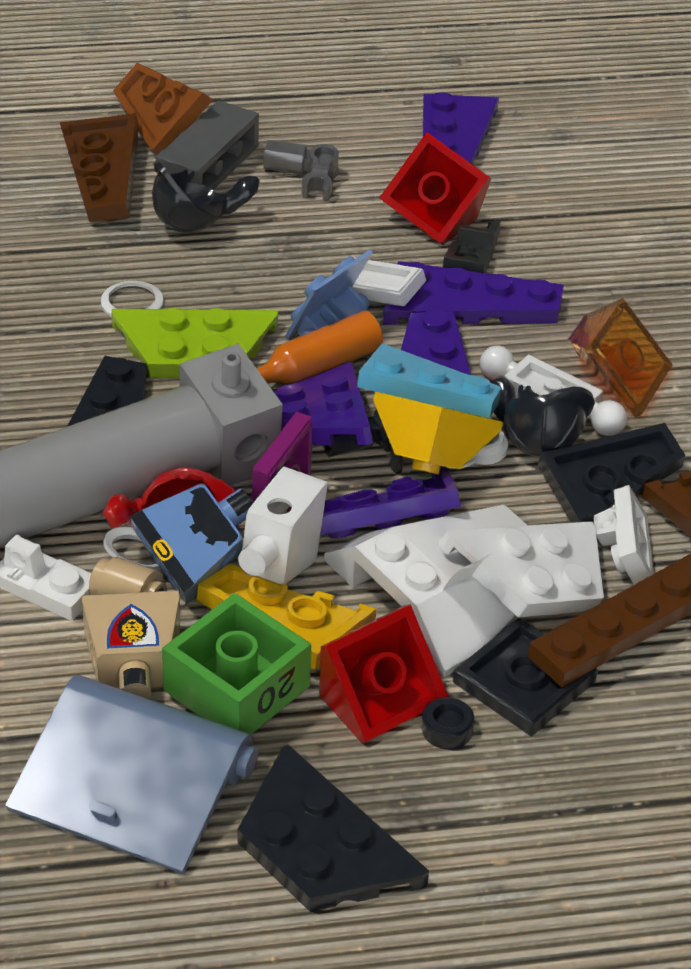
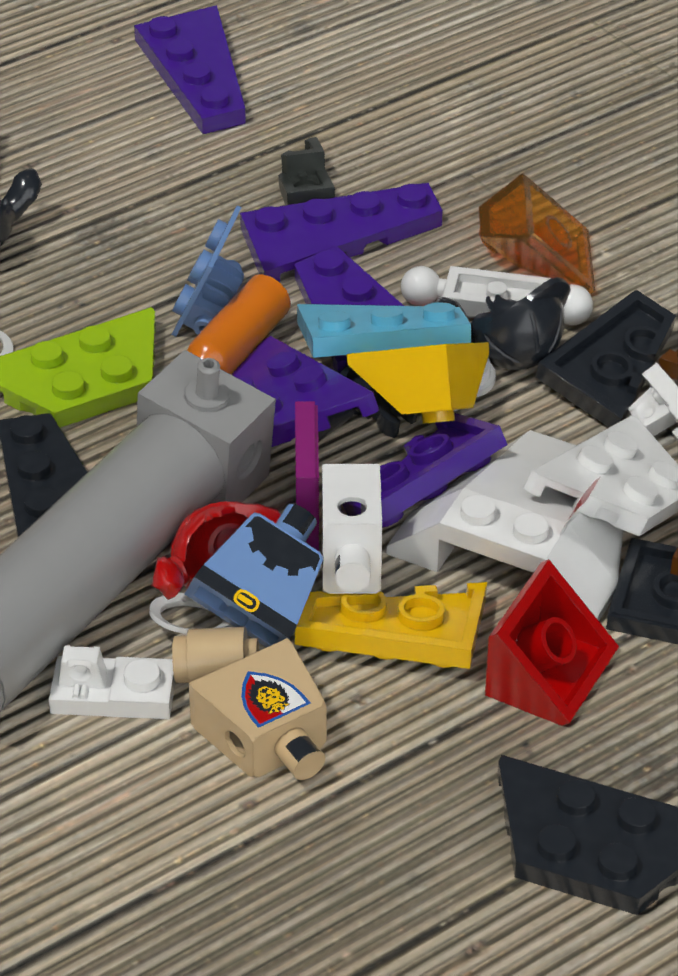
camera: 25 degrees left, 0 degrees up
(135, 761) = (364, 850): door -> none
(236, 665) = (402, 695): bright green brick -> none
(319, 162) = (45, 137): flat silver bar -> none
(389, 282) = (249, 241): white tile -> none
(437, 190) = (235, 121): red slope -> none
(447, 723) = (636, 671): black tile -> none

